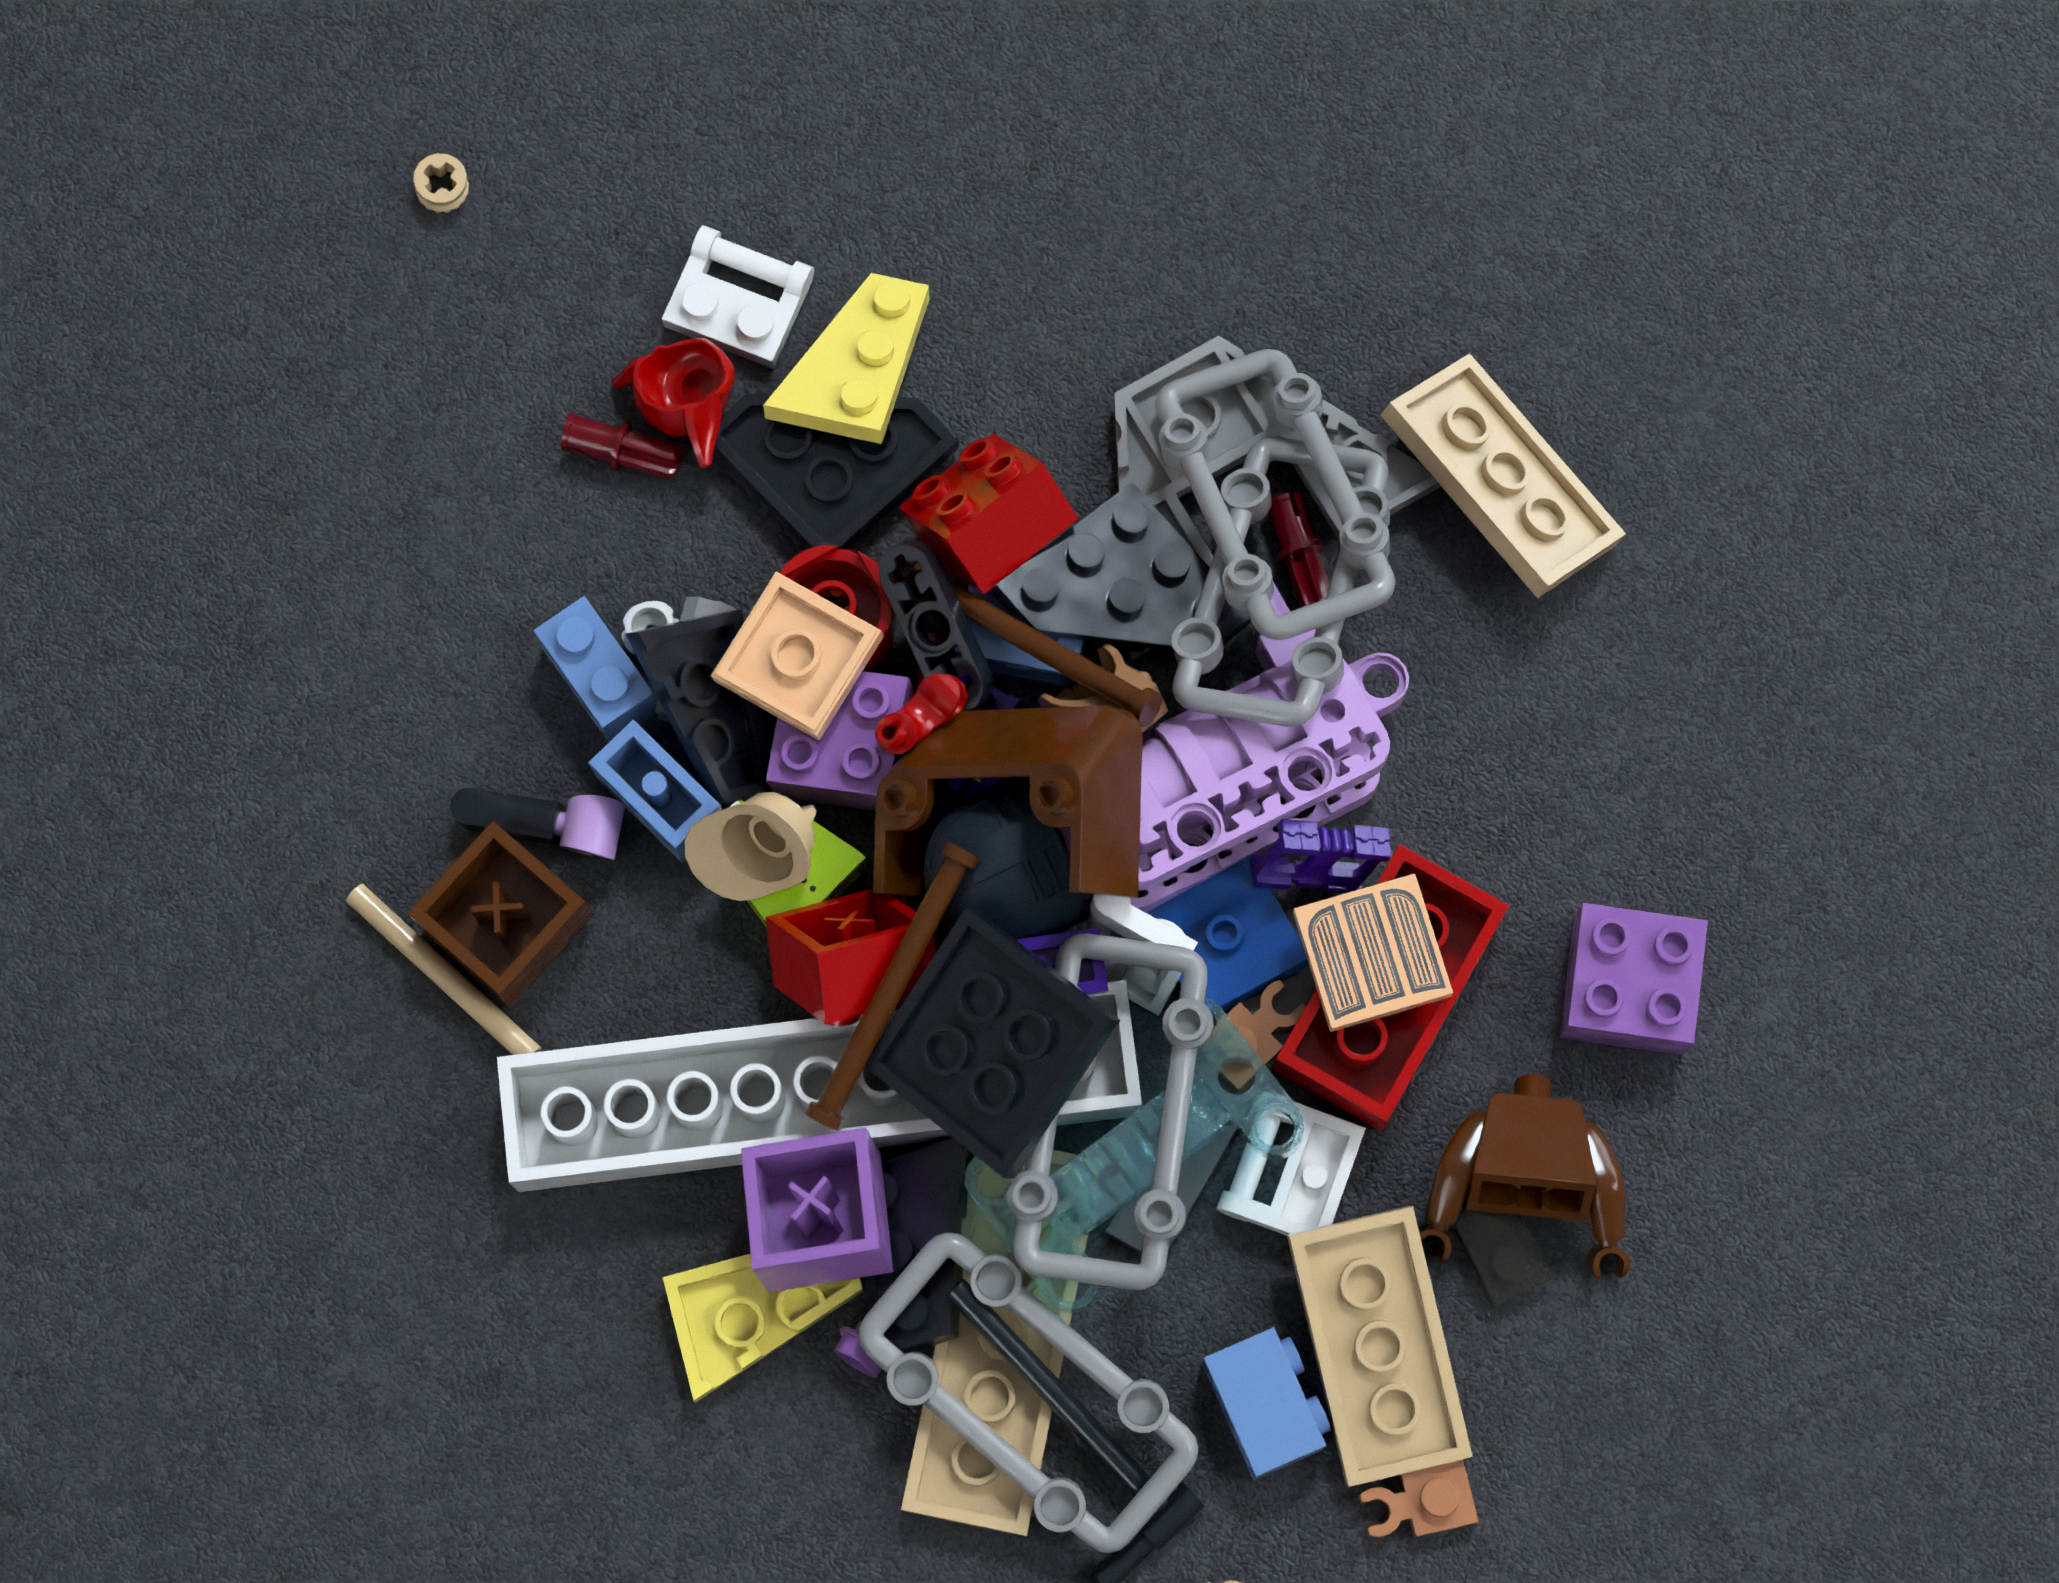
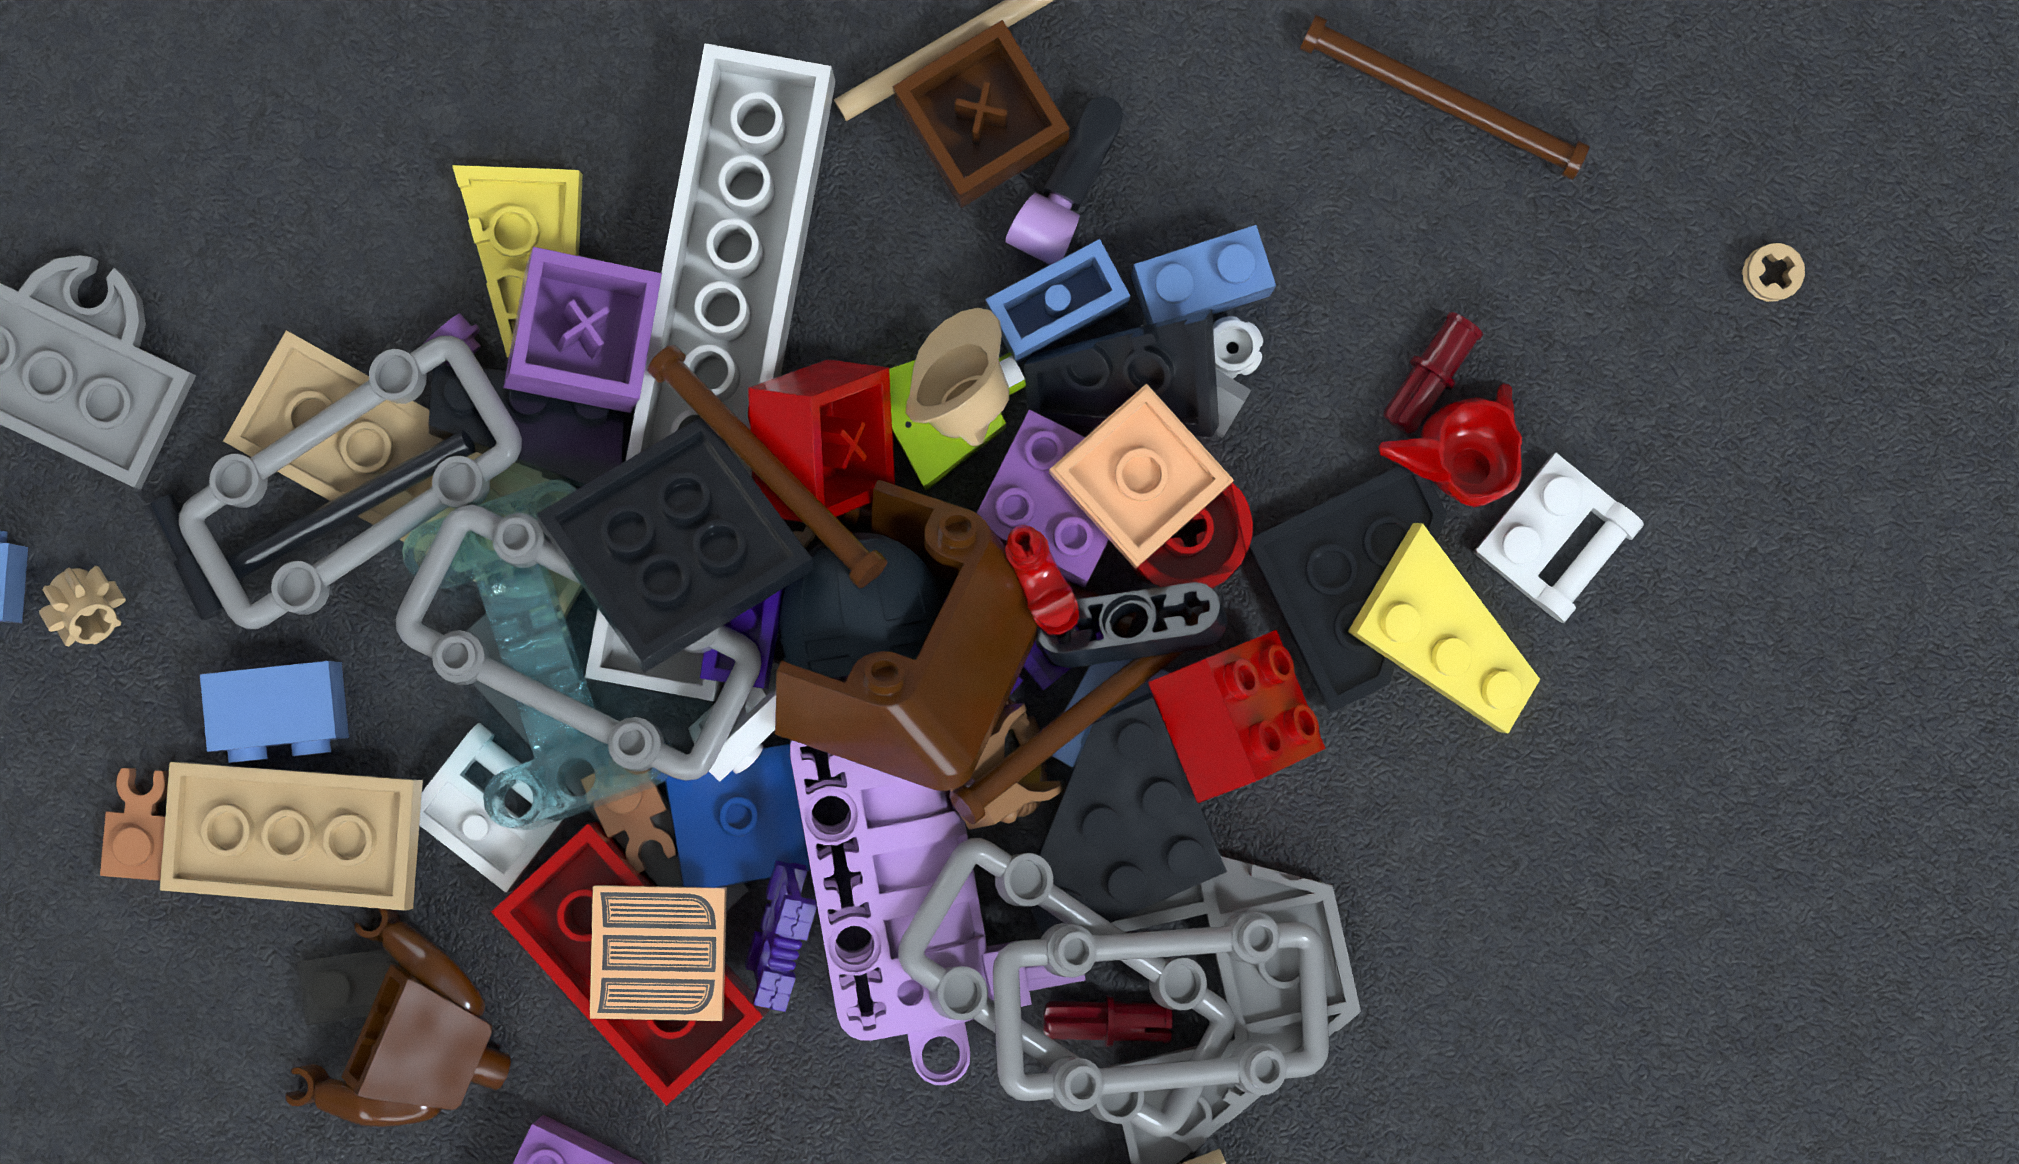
camera: 105 degrees right, 10 degrees up
(386, 389) = (1445, 97): none -> reddish brown bar

